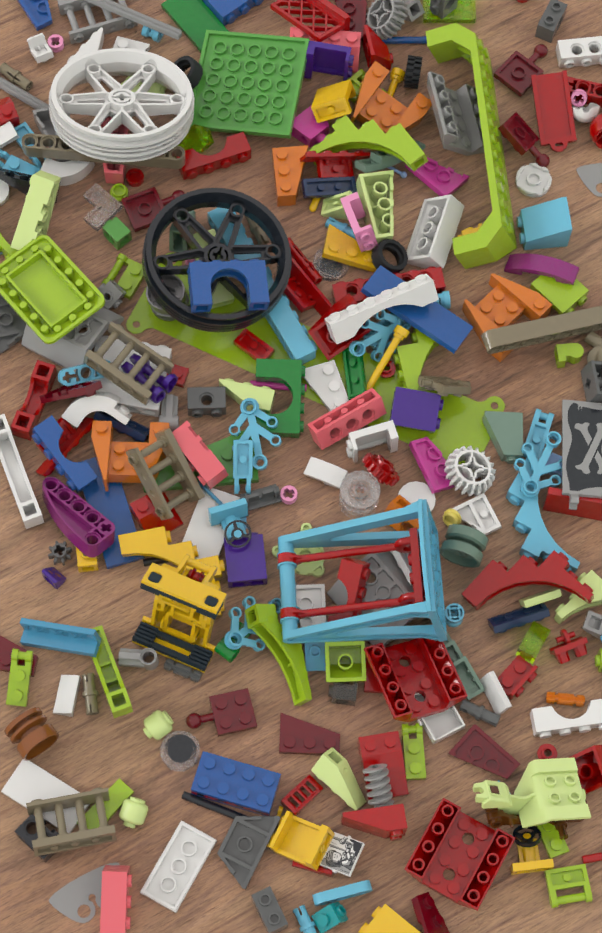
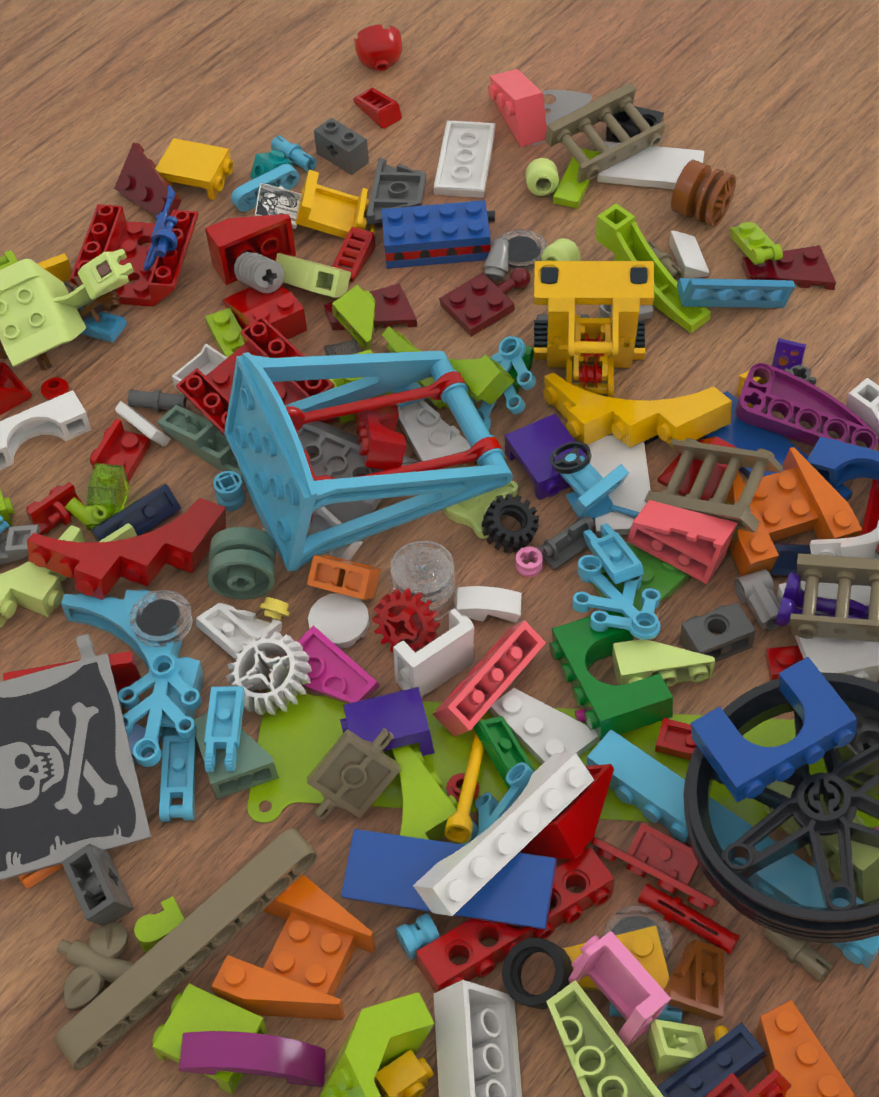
camera: 165 degrees right, 15 degrees down
(206, 735) = (497, 261): none -> light grey cone
(290, 509) = (517, 510): none -> black tyre
(314, 227) = (698, 981): none -> dark orange wing
(322, 721) = (357, 315): none -> lime slope
(440, 831) = (162, 237): none -> blue piece
(484, 753) = (143, 366): dark red wing -> none
(506, 438) = (224, 725): none -> medium azure hinge
(523, 524) = (161, 618): none -> tile
(547, 627) = (87, 514): none -> lime arm
(565, 699) = (45, 454): orange axle -> none

